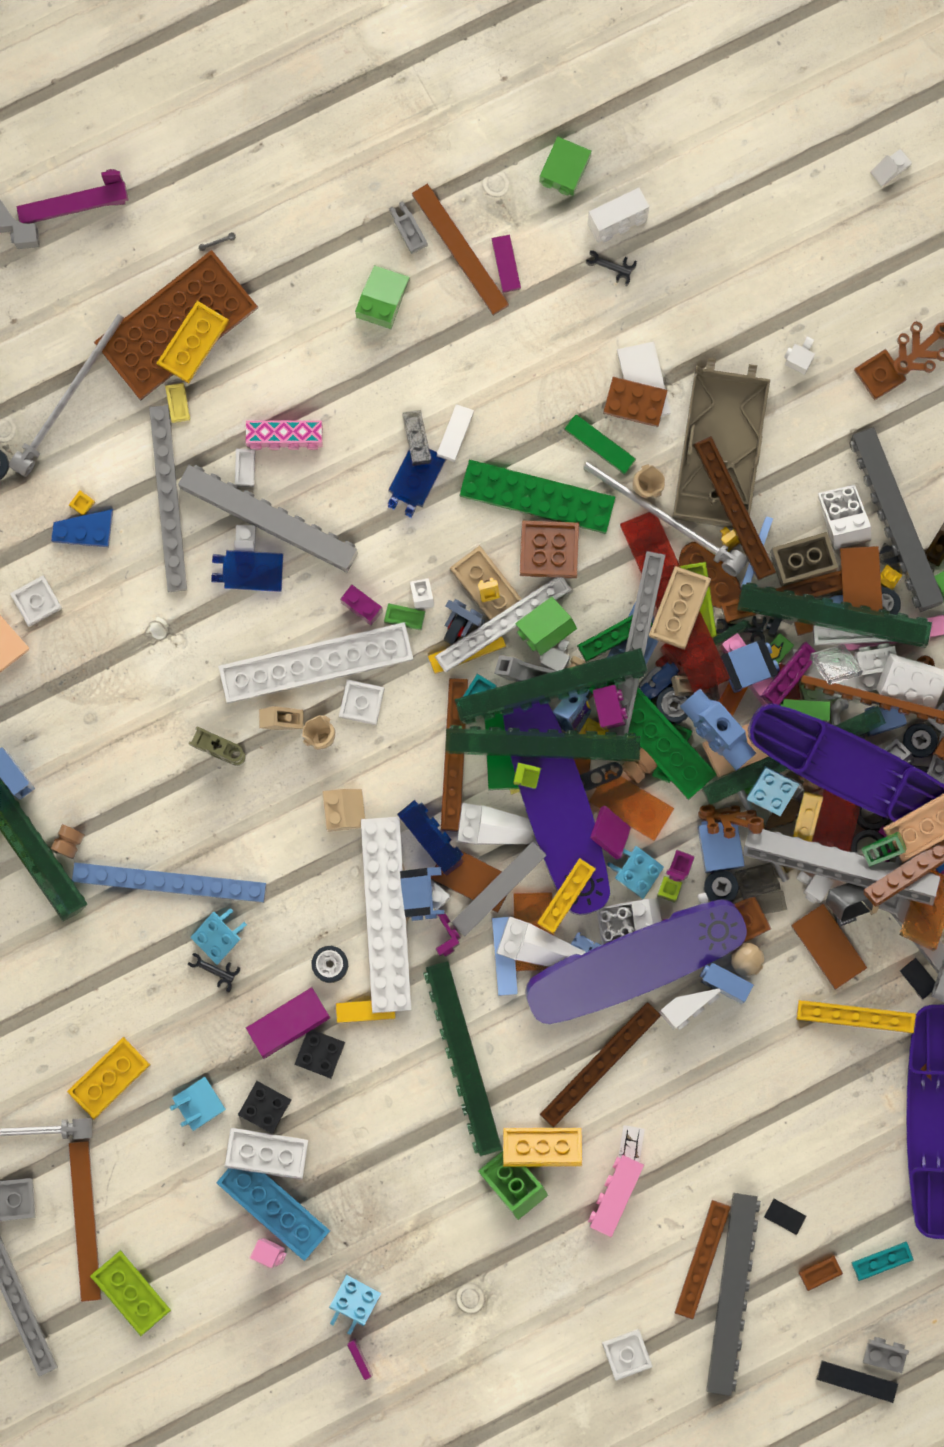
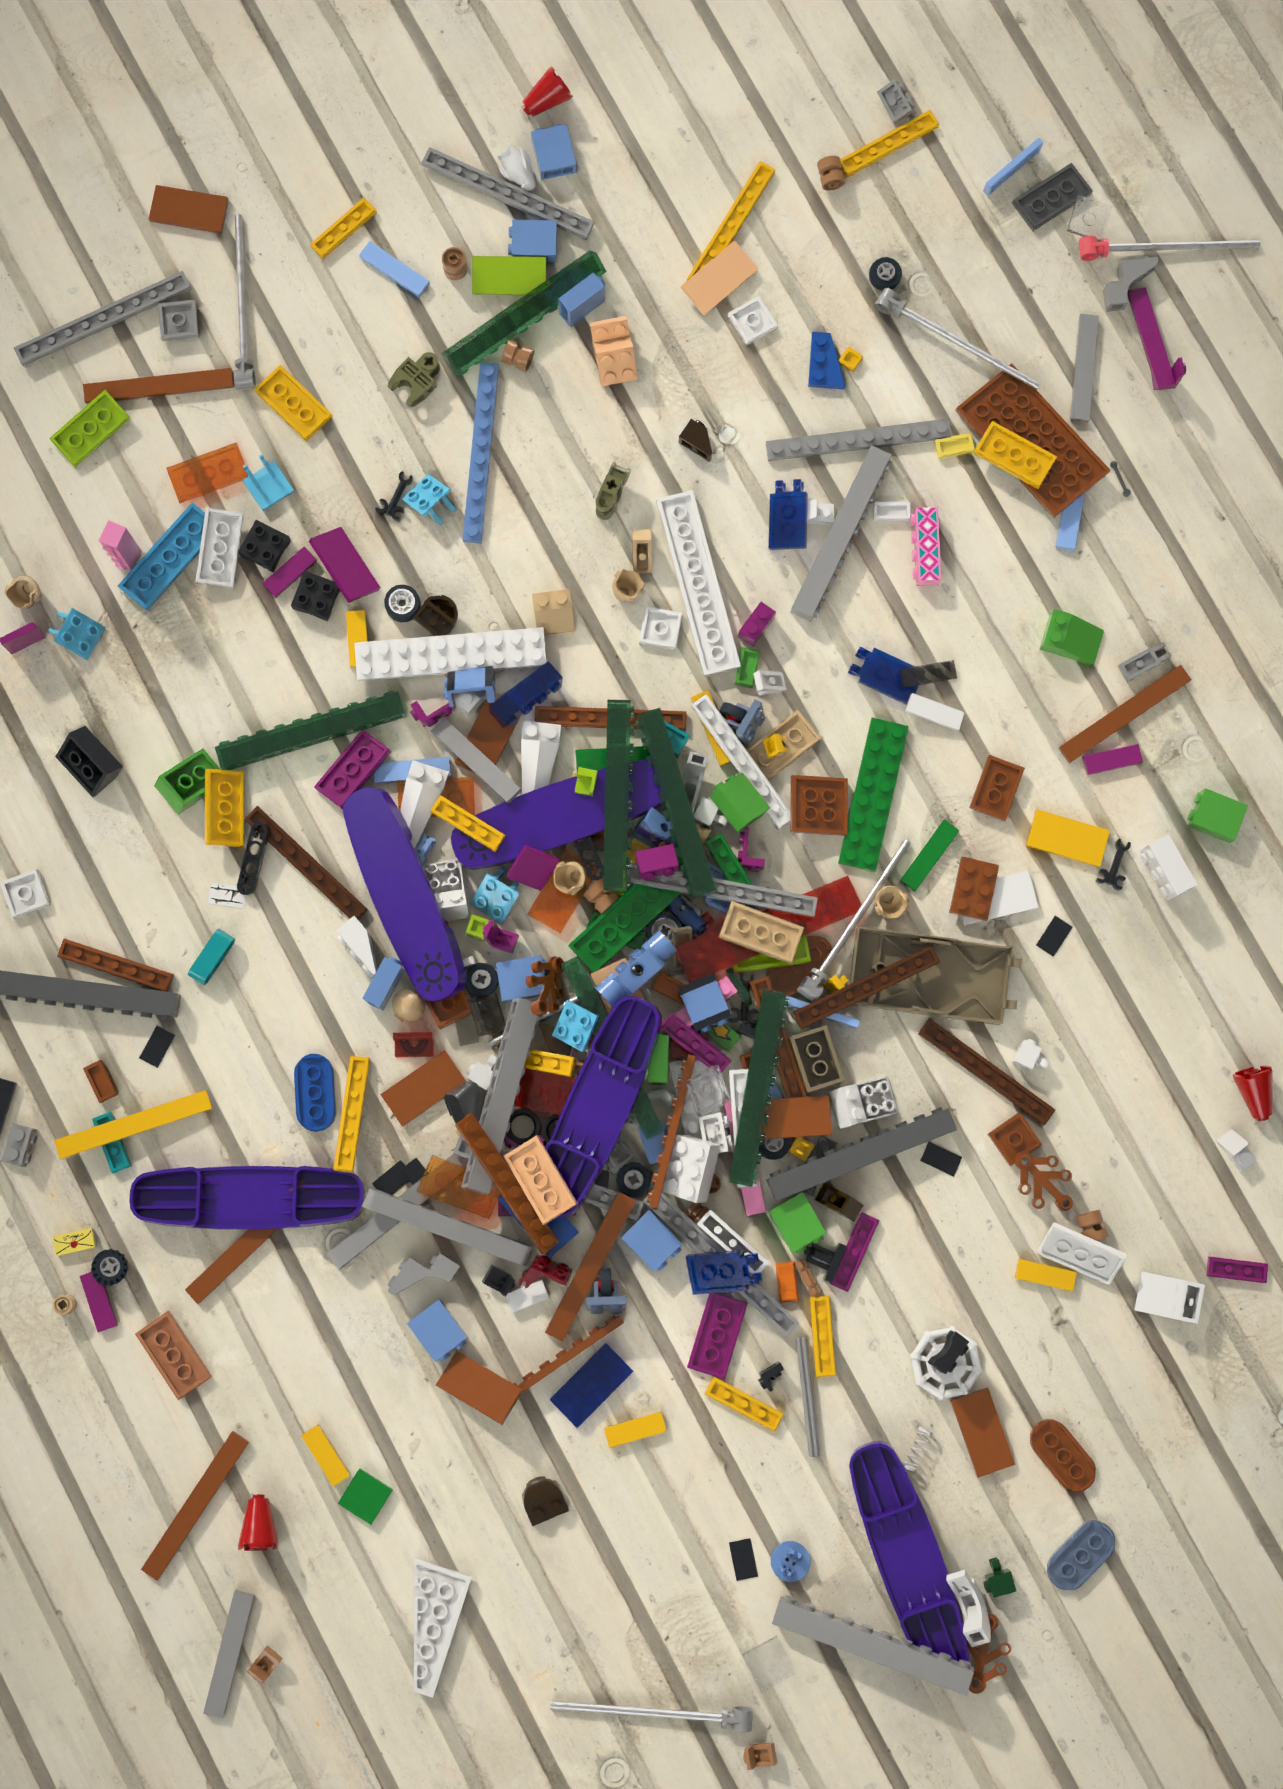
camera: 80 degrees right, 0 degrees up
(67, 742) = (613, 351): none -> light nougat bracket
(86, 947) = (417, 376): none -> olive piece
(99, 271) = (1084, 368): none -> light grey tile
(163, 660) = (696, 439): none -> dark brown slope
(182, 1167) = (207, 472): none -> clear orange tile
(266, 293) = (1069, 525): none -> light blue tile
(292, 1081) = (289, 572): none -> magenta tile
(309, 1359) = (23, 592): none -> tan cap
(344, 927) = (437, 615): none -> dark brown slope
(490, 1289) = (88, 760): none -> black slope
(503, 1016) = (352, 768): none -> magenta tile
(533, 376) = (996, 788): none -> dark orange plate
(584, 310) = (1067, 838): none -> yellow tile
(595, 1116) = (250, 858): none -> black beam
(608, 615) = (752, 864): none -> magenta bracket
(616, 1195) = (176, 879): bright pink brick -> none
(621, 795) = (569, 877): none -> tan cap
(681, 328) = (1054, 936): none -> black sticker
(695, 1160) = (211, 956): none -> teal beam
(785, 956) = (414, 1044): none -> clear red panel
(814, 398) = (986, 1072): none -> reddish brown tile
(832, 1055) = (314, 1092): none -> blue tile
(834, 145) = (1256, 1090): none -> red cone
(865, 1238) = (132, 1124): none -> yellow tile
(894, 852) = (520, 1147): green slope -> none
(899, 445) = (941, 1159): none -> black sticker
(911, 956) = (414, 1171): none -> black tile

